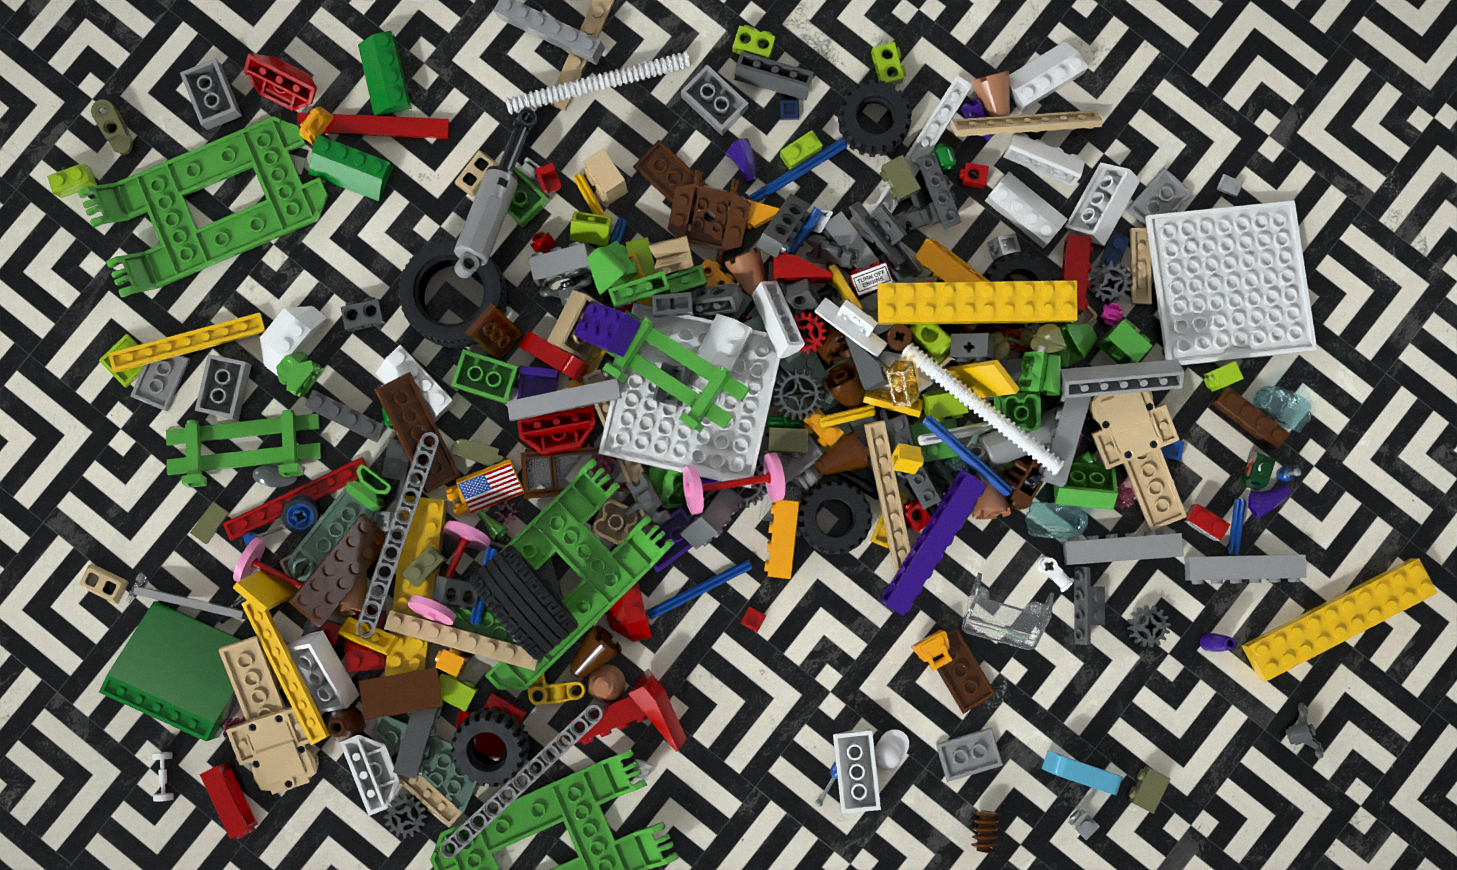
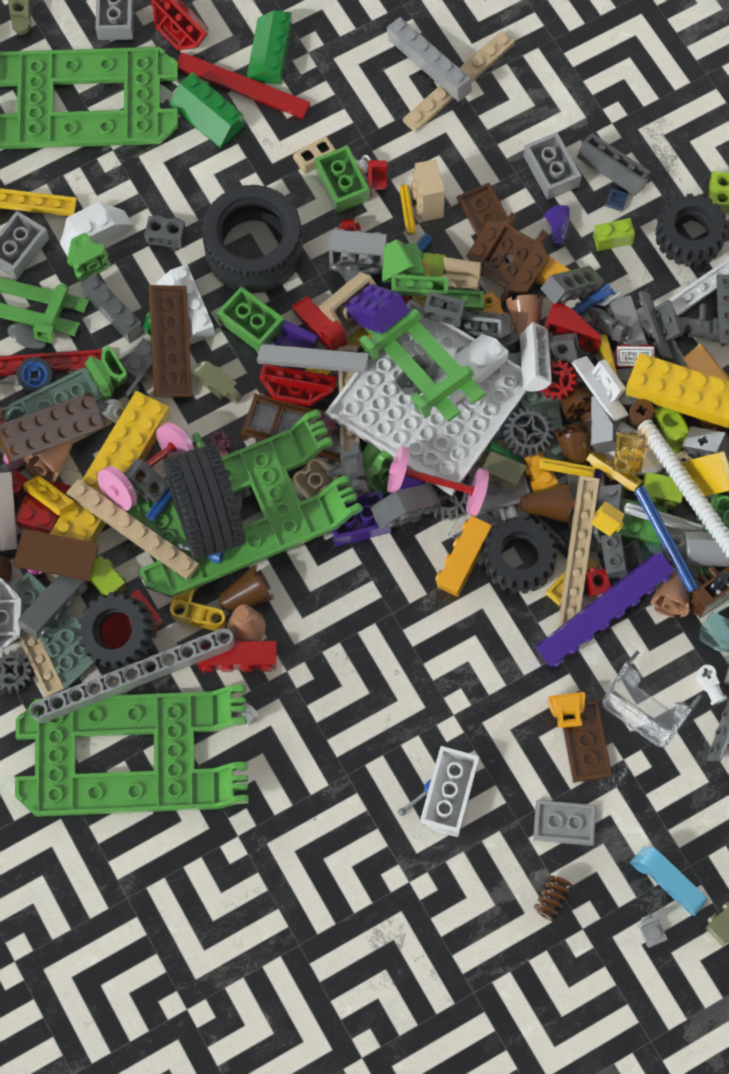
camera: 25 degrees right, 15 degrees down
(315, 124) = (193, 61): light orange piece -> none
(398, 544) = (111, 423): light grey beam -> none
(424, 566) = (126, 451): olive brick -> none
(452, 661) = (114, 548): light orange brick -> none
(485, 488) = (210, 412): tile -> none
(492, 202) = (319, 169): light grey piece -> none
(494, 332) = (275, 278): reddish brown tile -> none
(590, 228) = (397, 229): lime brick -> none
(598, 82) = (457, 116): white piece -> none
(629, 616) = (292, 571): red wedge -> none
(656, 705) = (285, 659): red wedge -> none
(699, 589) = (367, 575): blue axle -> none
(753, 619) = (407, 621): red tile -> none
(755, 38) = (609, 130): lime brick -> none
(798, 171) = (604, 252): blue axle -> none
(891, 749) = (491, 789): white cap -> none
(899, 178) = (695, 286): olive brick -> none

